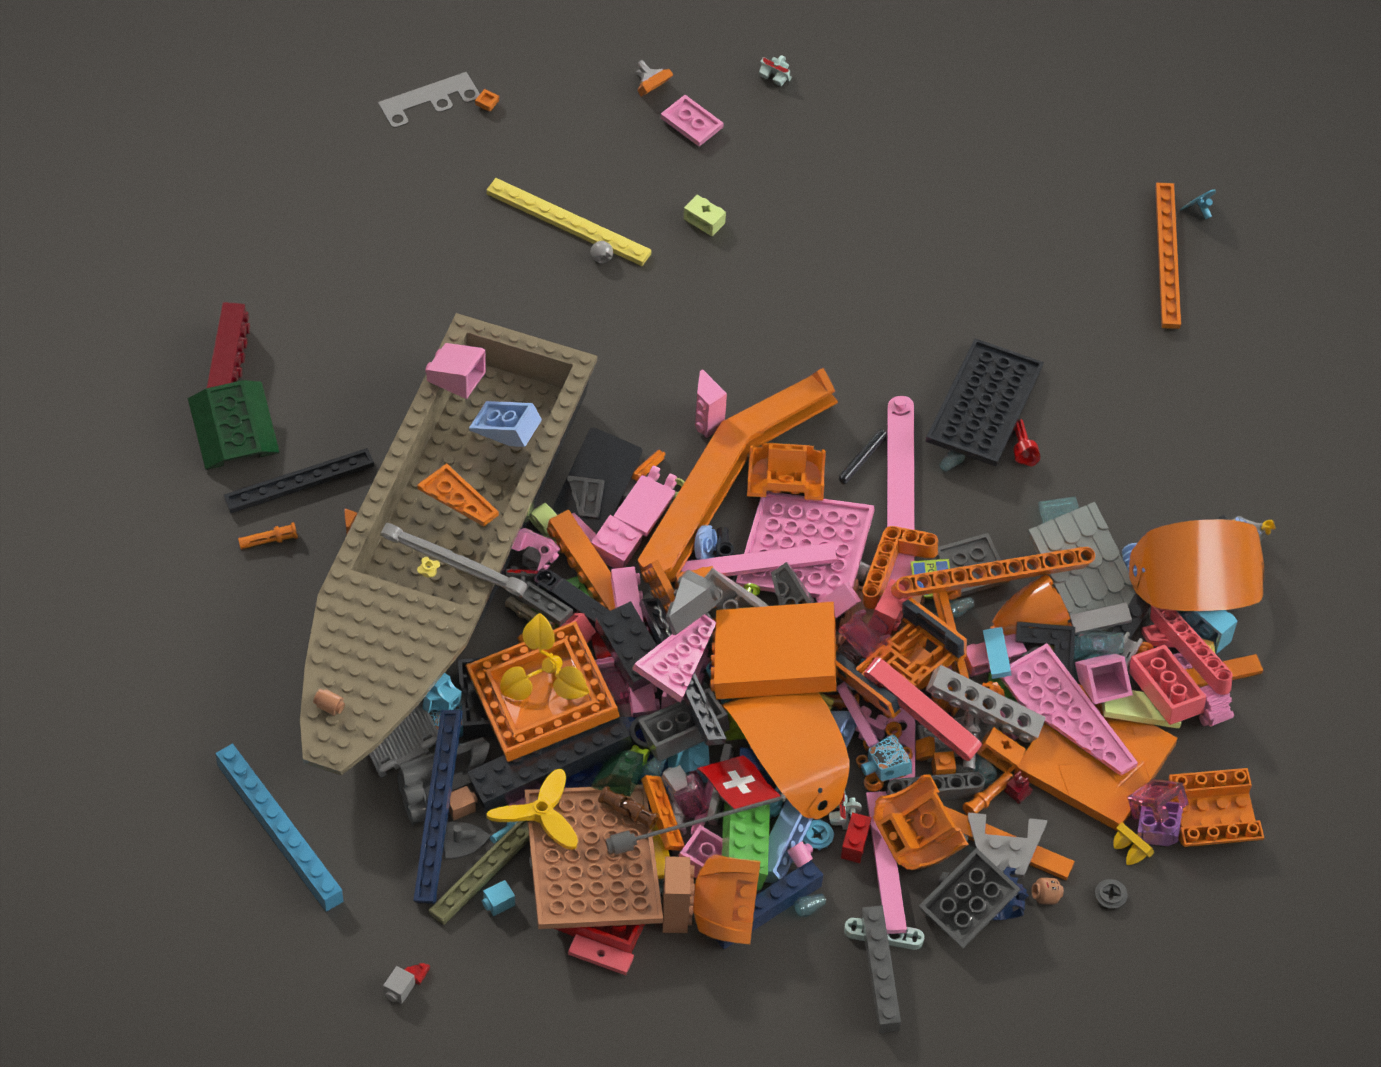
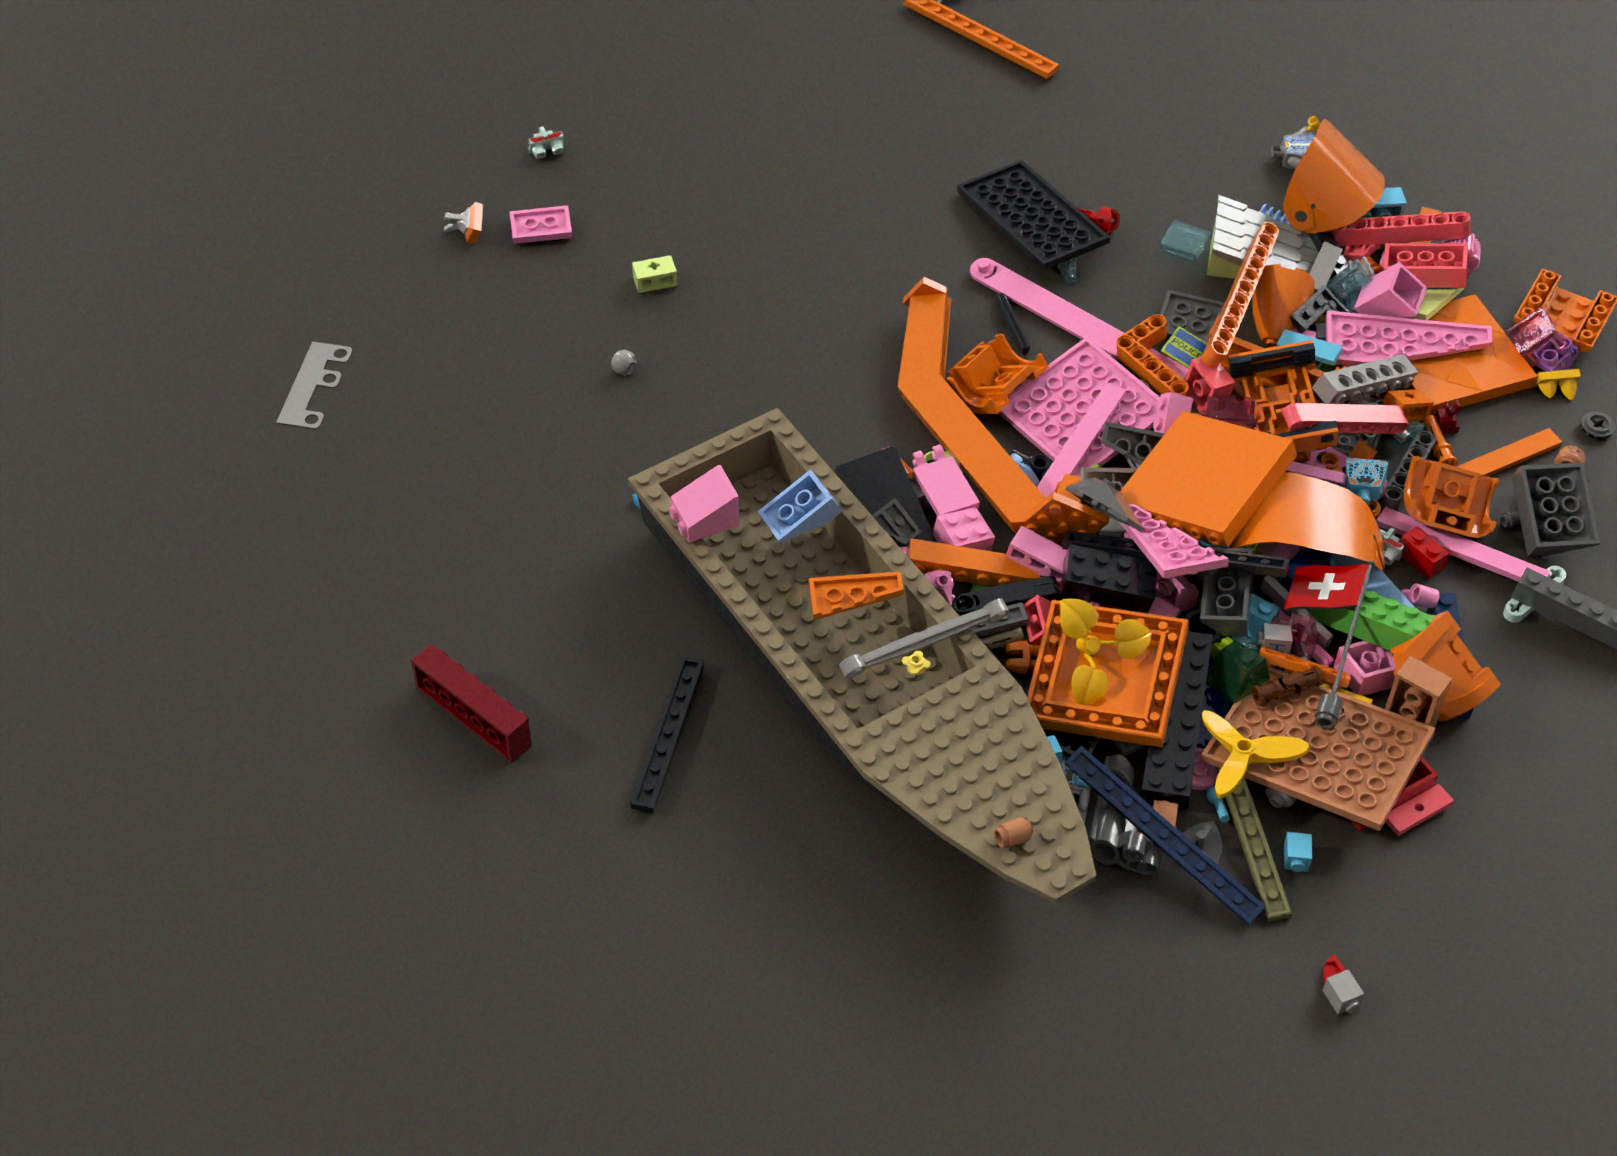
camera: 50 degrees left, 5 degrees down
(232, 422) = (557, 745): dark green slope -> none
(277, 534) = (717, 787): orange pin -> none
(279, 827) = (1079, 986): dark azure brick -> none
(349, 519) = (756, 720): orange slope -> none
(487, 100) = (365, 343): orange plate -> none
(567, 221) = (558, 368): light yellow plate -> none
(709, 405) = (875, 380): bright pink slope -> none
(807, 905) = (1470, 626): clear light blue cone -> none
(818, 827) = (1401, 574): medium azure gear -> none
(943, 763) = (1391, 451): orange brick -> none
(1007, 850) = (1506, 461): light grey wing -> none

